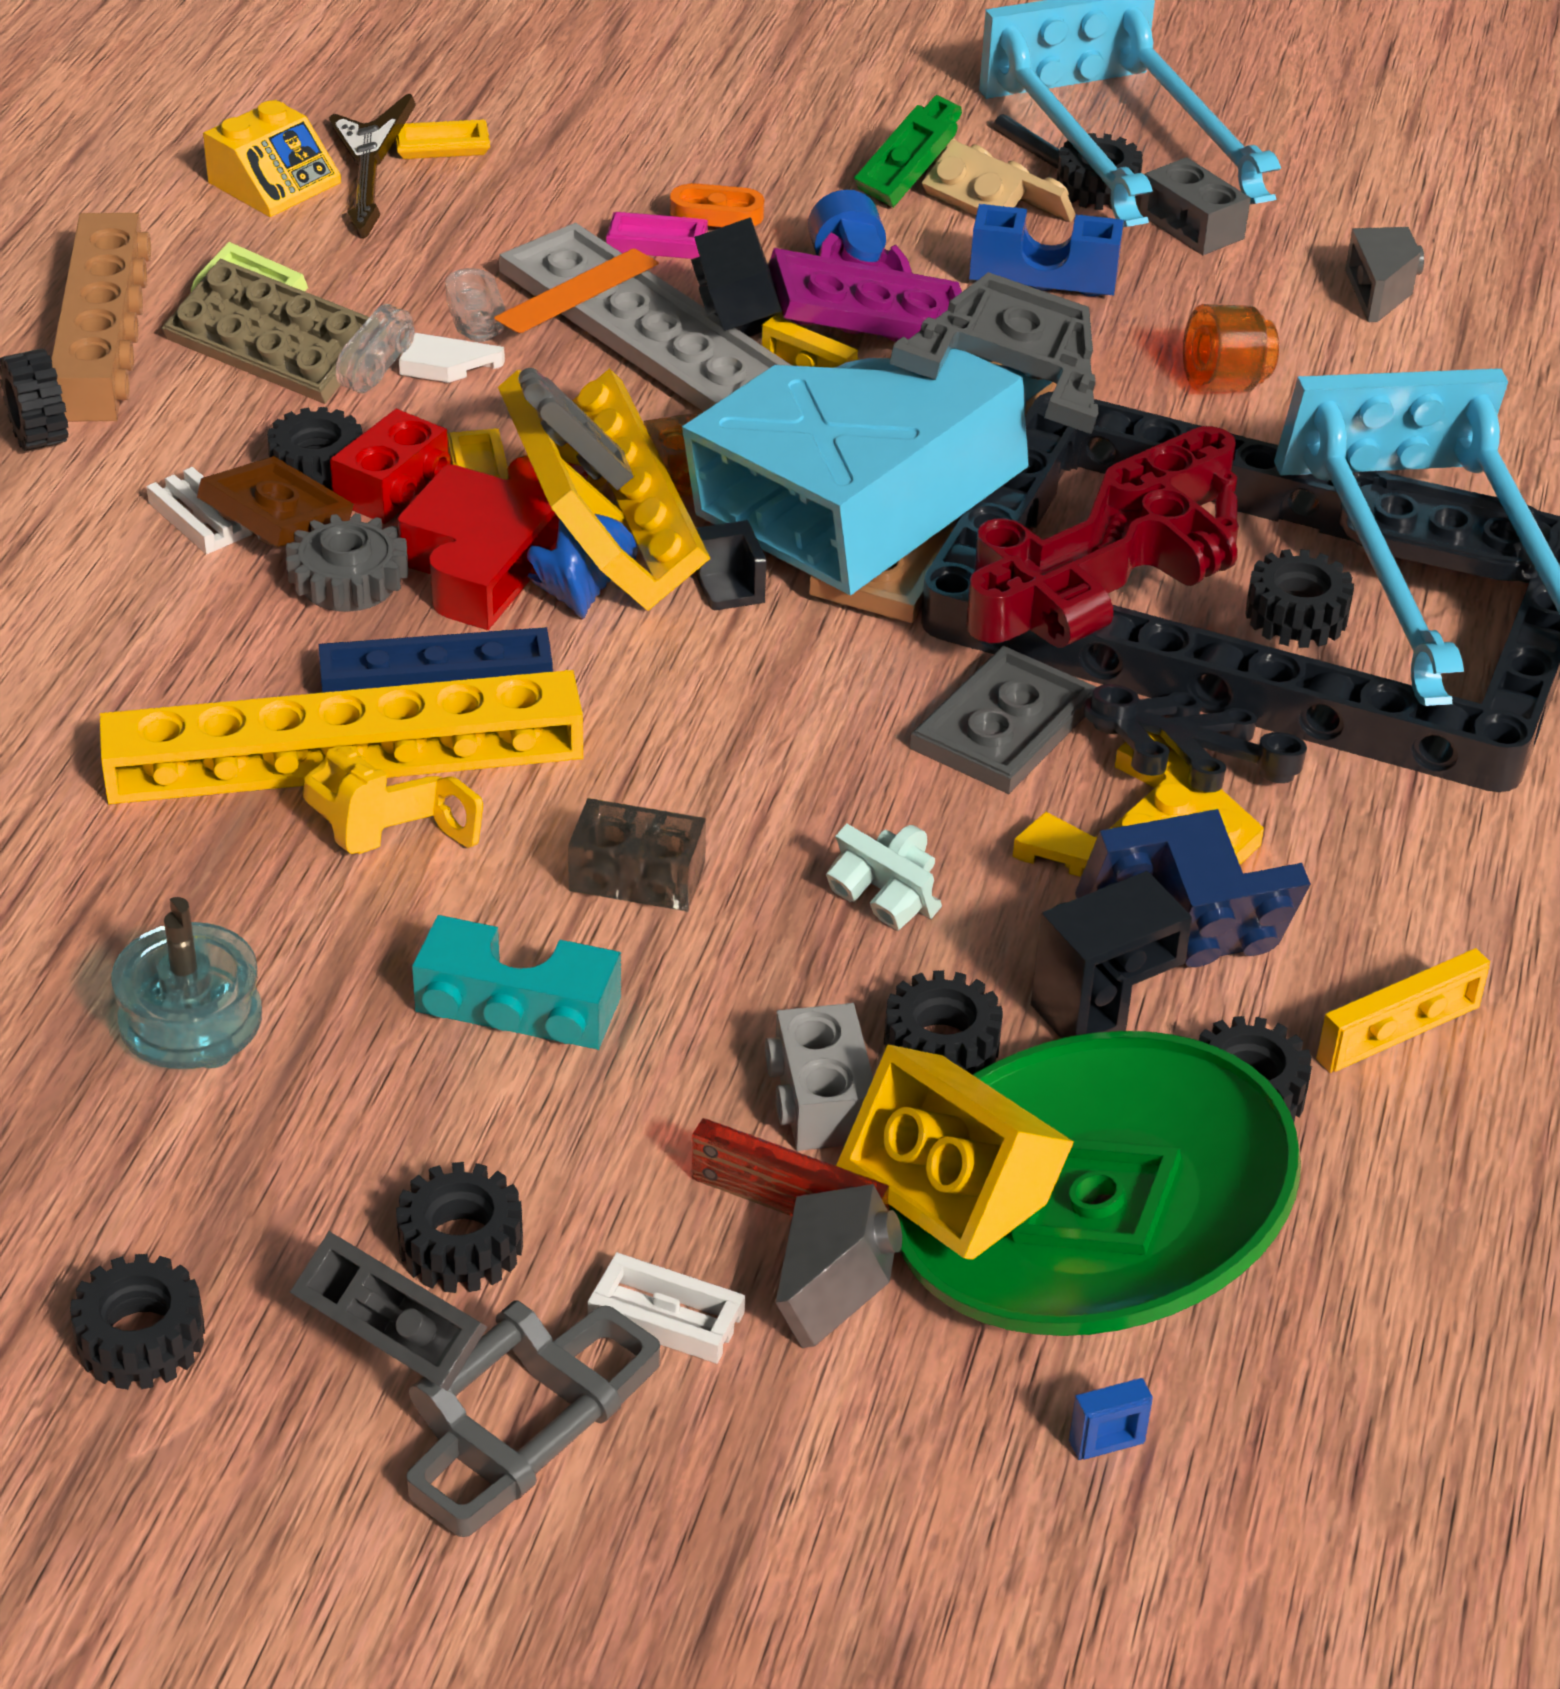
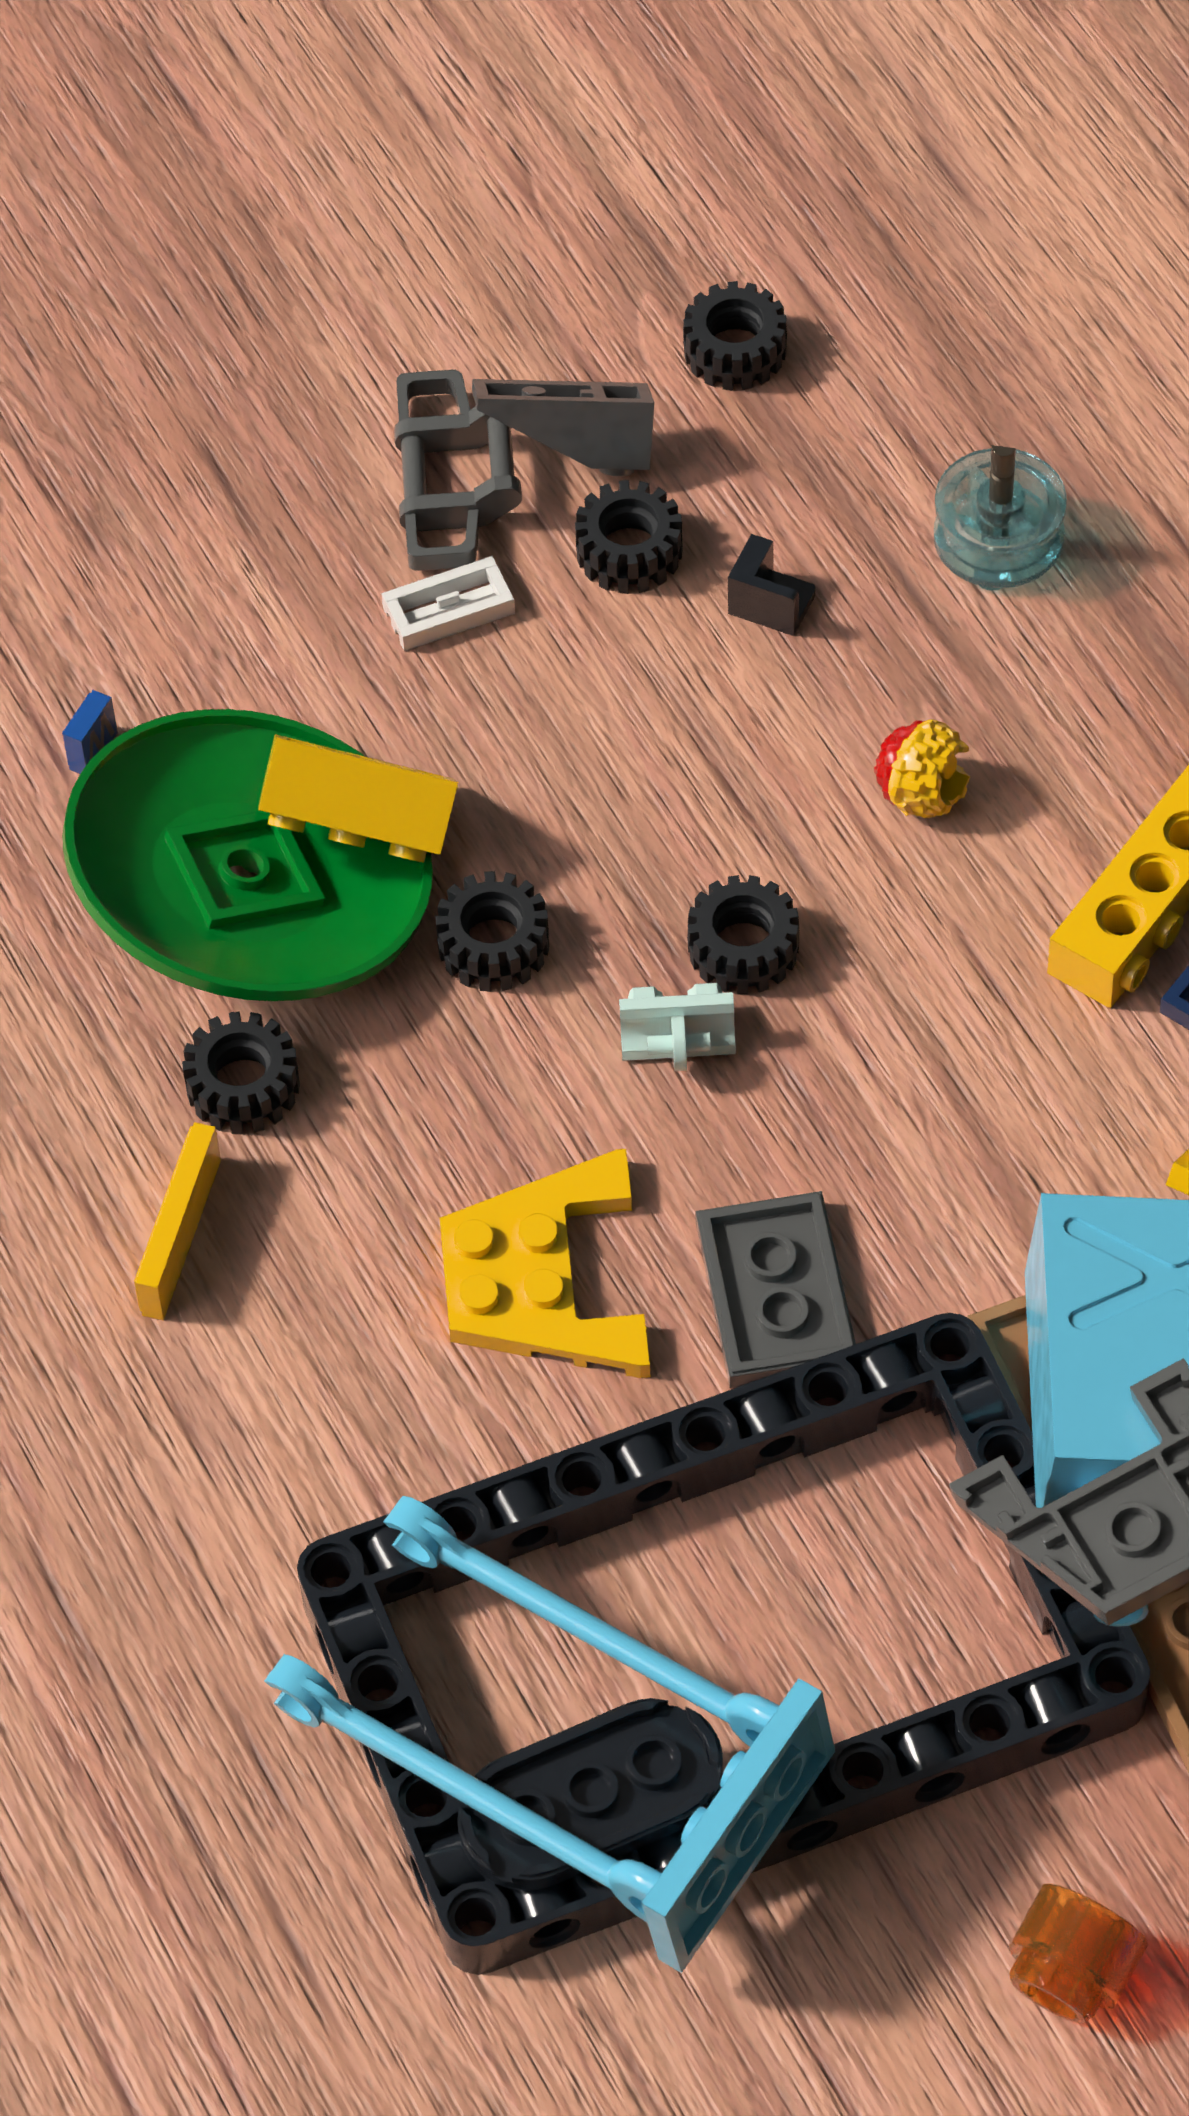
camera: 140 degrees right, 15 degrees up
(361, 806) = (1098, 727): yellow piece -> none
(418, 1108) = (764, 594): none -> black panel
(501, 881) = (921, 768): none -> yellow piece
(559, 1000) = (852, 690): teal arch -> none
(637, 854) = (877, 895): clear smoke brick -> none
(763, 921) = (743, 964): none -> black tyre
(765, 1170) = (462, 723): clear red tile -> none
(820, 1071) = (520, 828): light grey brick -> none
(835, 1259) = (370, 690): flat silver slope -> none
(1102, 947) = (416, 1028): black brick -> none
(1121, 712) = (603, 1364): black plant -> none
(1141, 516) = (842, 1362): dark red beam -> none
(1201, 871) = (412, 1146): dark blue bracket -> none
(1299, 598) = (617, 1508): black tyre -> none

